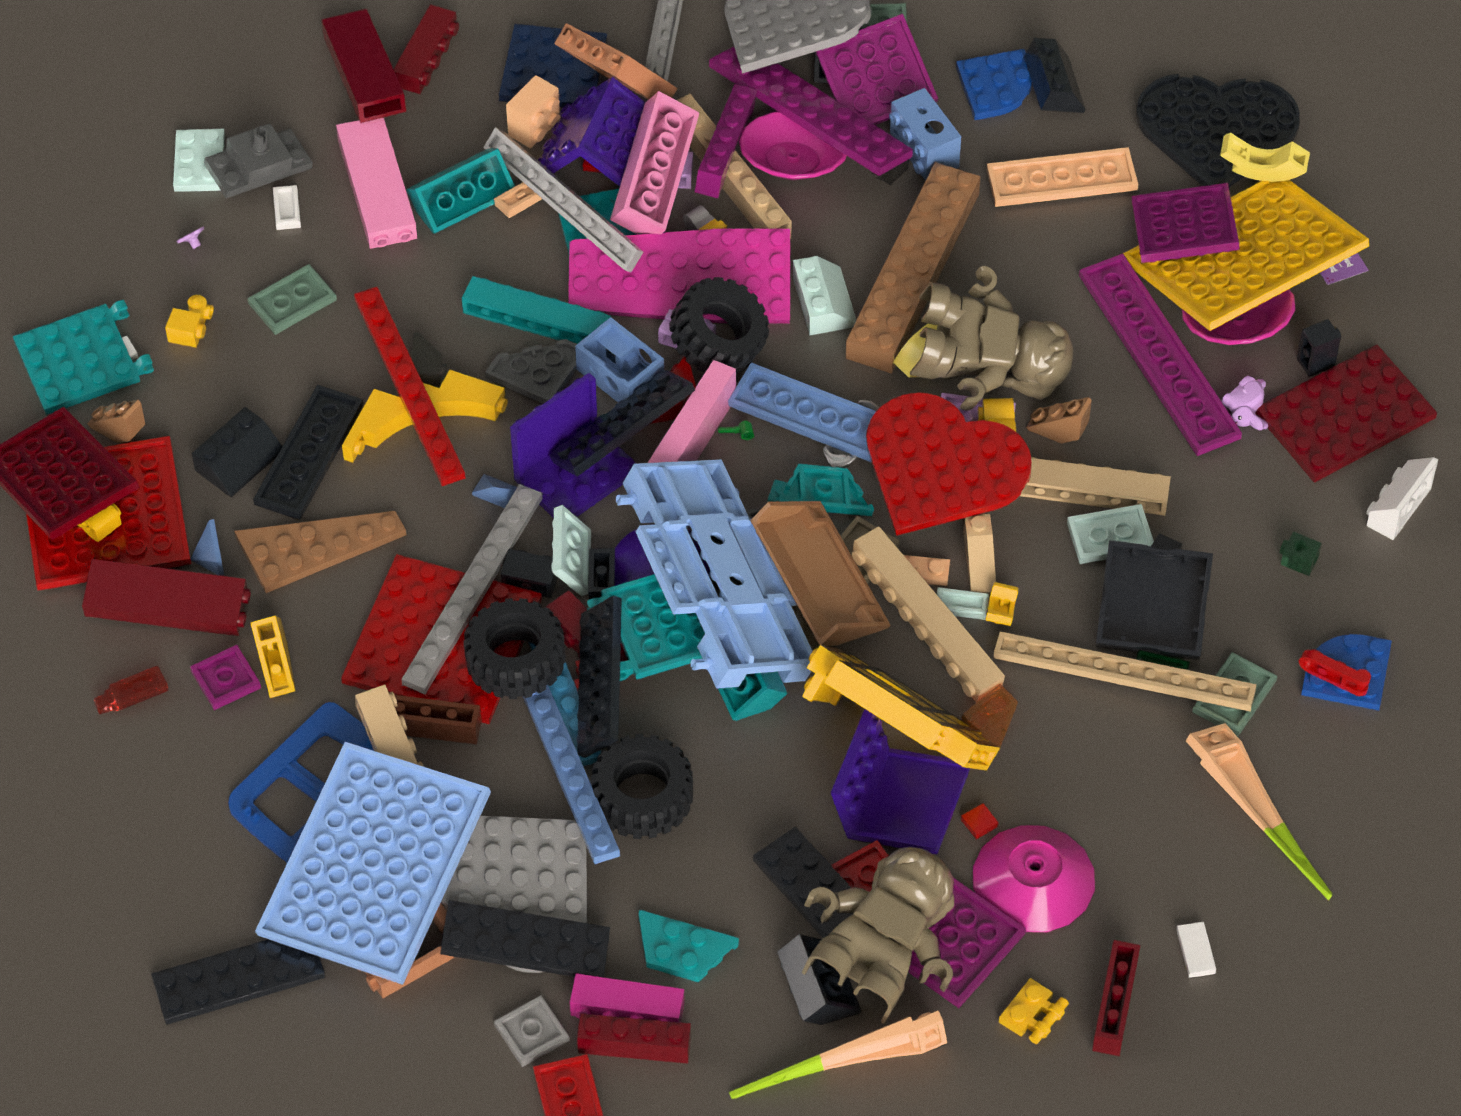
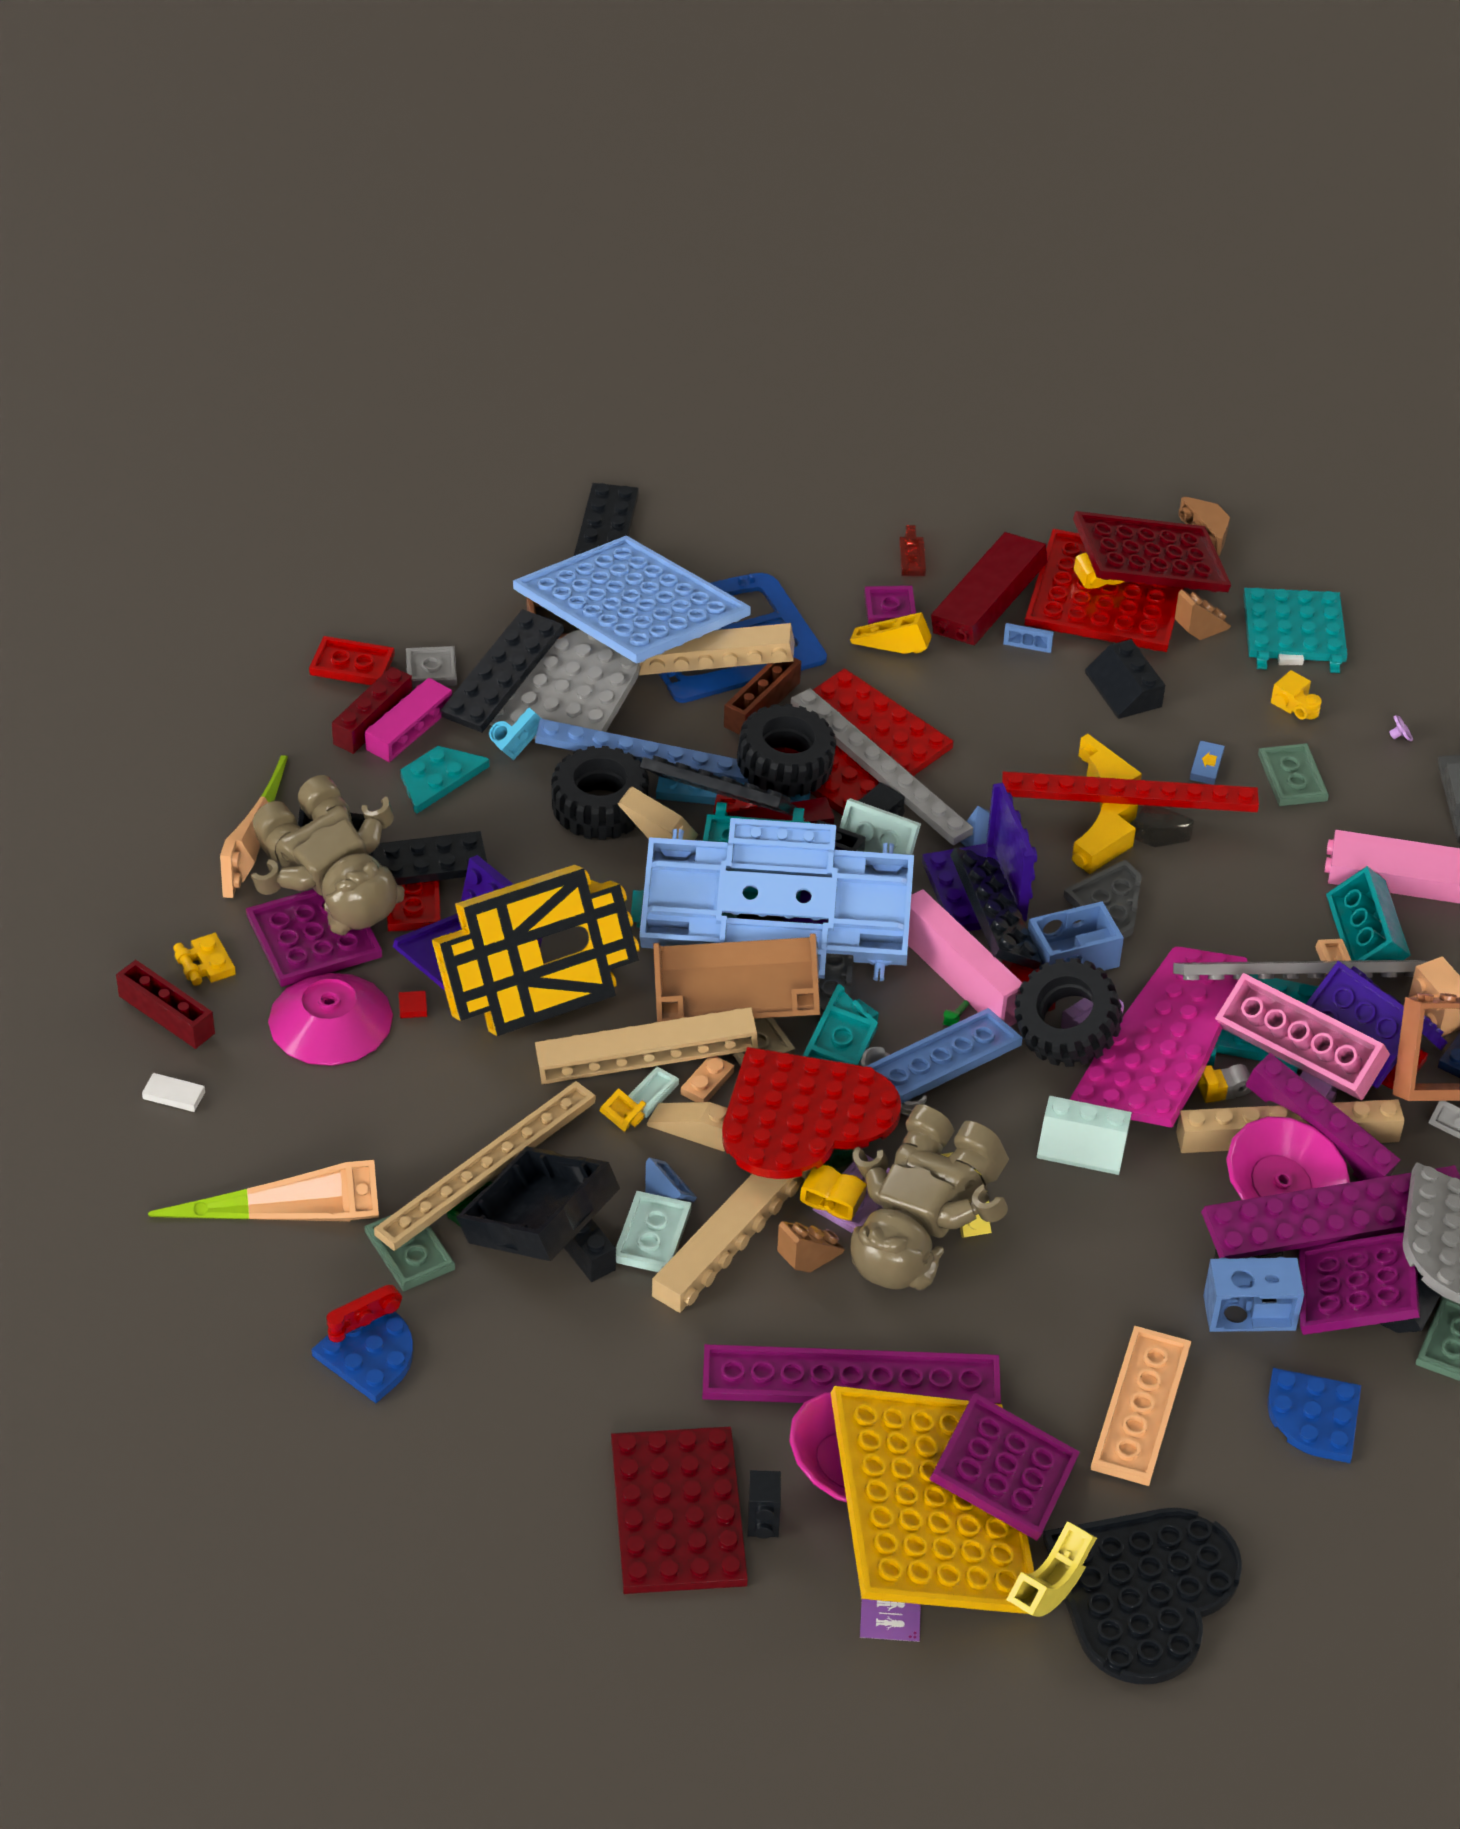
camera: 115 degrees right, 10 degrees down
(286, 207) = (1411, 806): white tile -> none
(301, 549) = (997, 697): medium nougat wing -> none
(308, 452) = (1091, 714): black plate -> none
(312, 363) = (1207, 762): none -> medium blue tile
(529, 311) = (1179, 919): teal brick -> none
(604, 889) = (516, 737): none -> medium azure plate
(663, 710) = (653, 817): none -> tan slope
(911, 265) = (1094, 1228): medium nougat brick -> none
(992, 714) = (509, 1055): clear orange wing -> none
(1053, 77) = (1286, 1456): black slope -> none
(1055, 546) = (664, 1182): none -> medium blue slope
(1245, 401) = (742, 1417): lavender animal -> none
(1300, 553) = (525, 1370): clear green brick -> none
(1402, 496) = (532, 1486): white slope -> none

